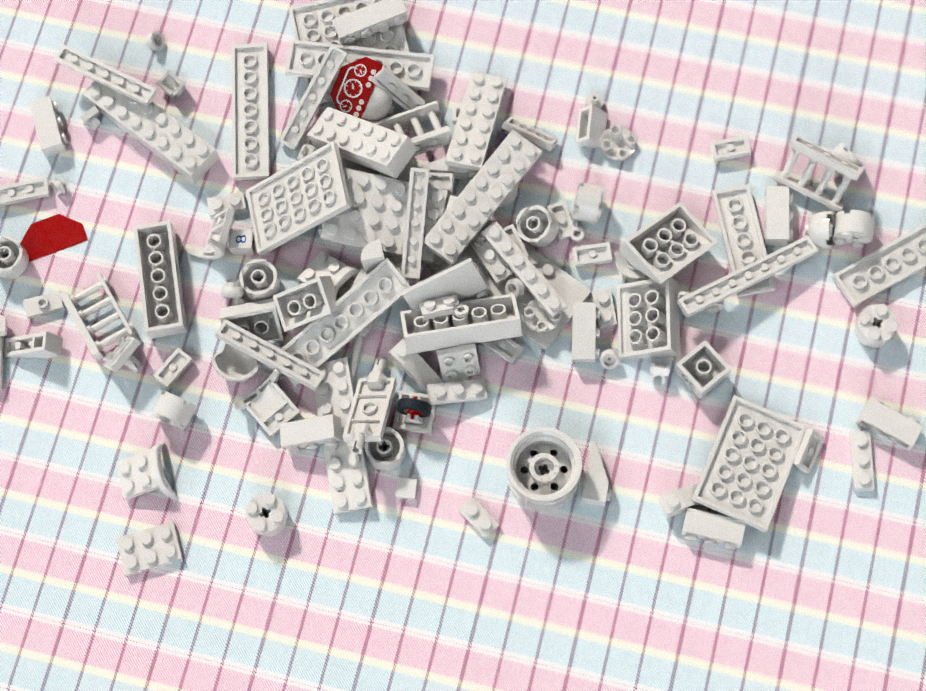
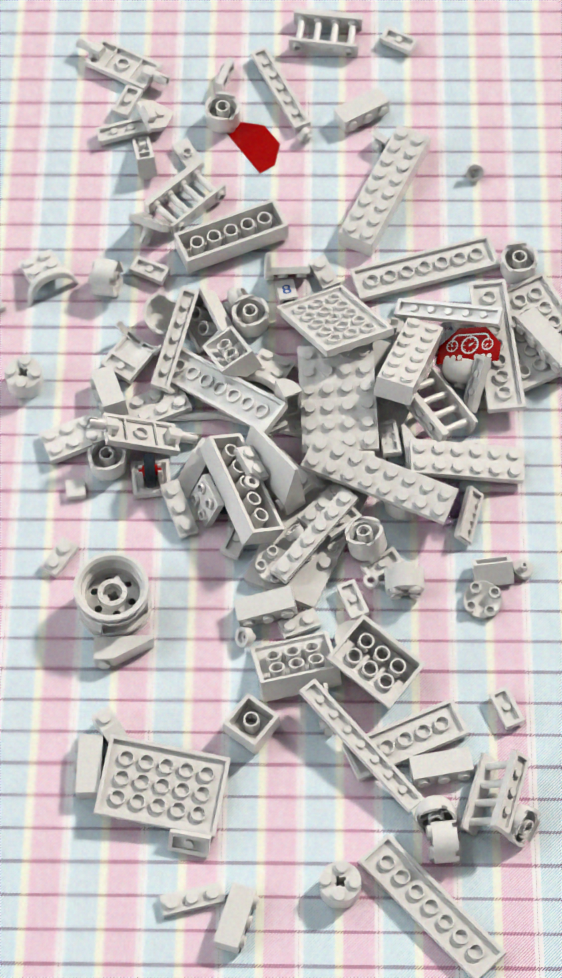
camera: 70 degrees right, 10 degrees down
(106, 75) = (417, 135): white plate -> none
(171, 84) = (432, 196): white bracket -> none
(272, 25) = (518, 262): none -> white brick
(415, 223) = (332, 423): white plate -> none
(659, 369) = (244, 685): white tile -> none

